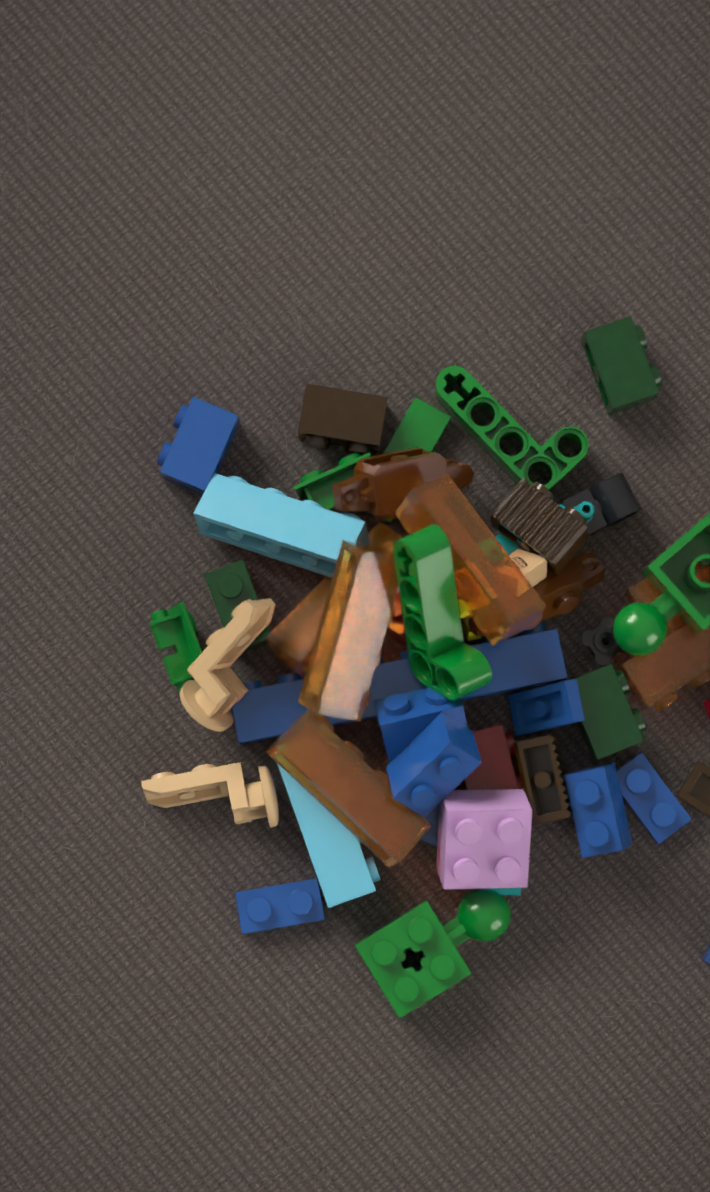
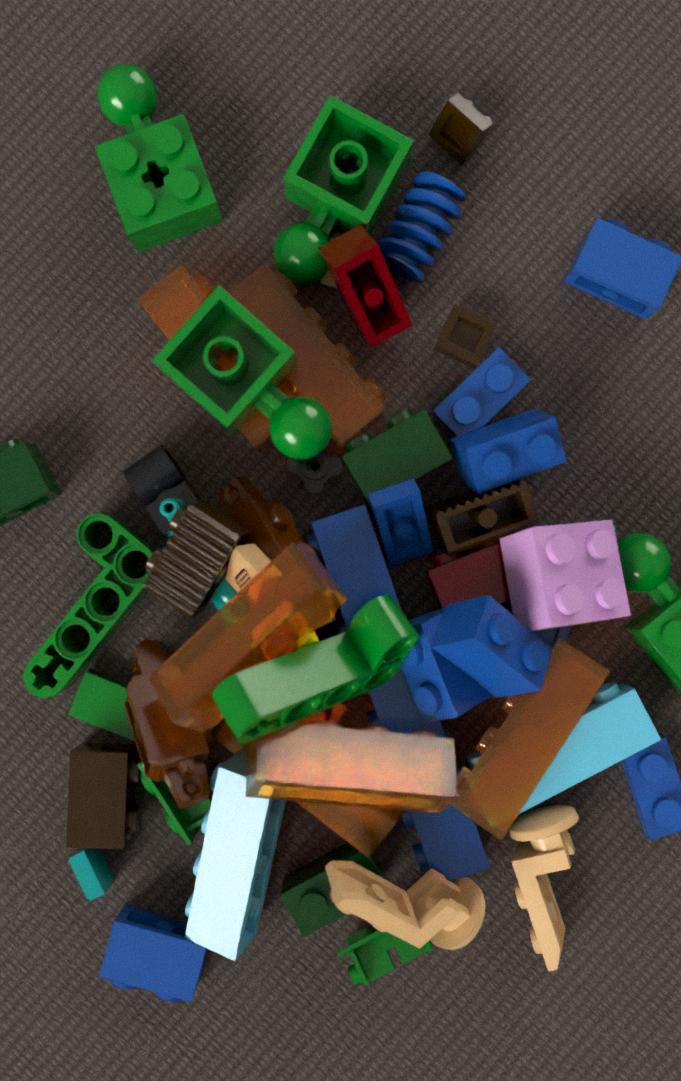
camera: 90 degrees left, 5 degrees up
(279, 400) = (91, 871): none -> teal tile

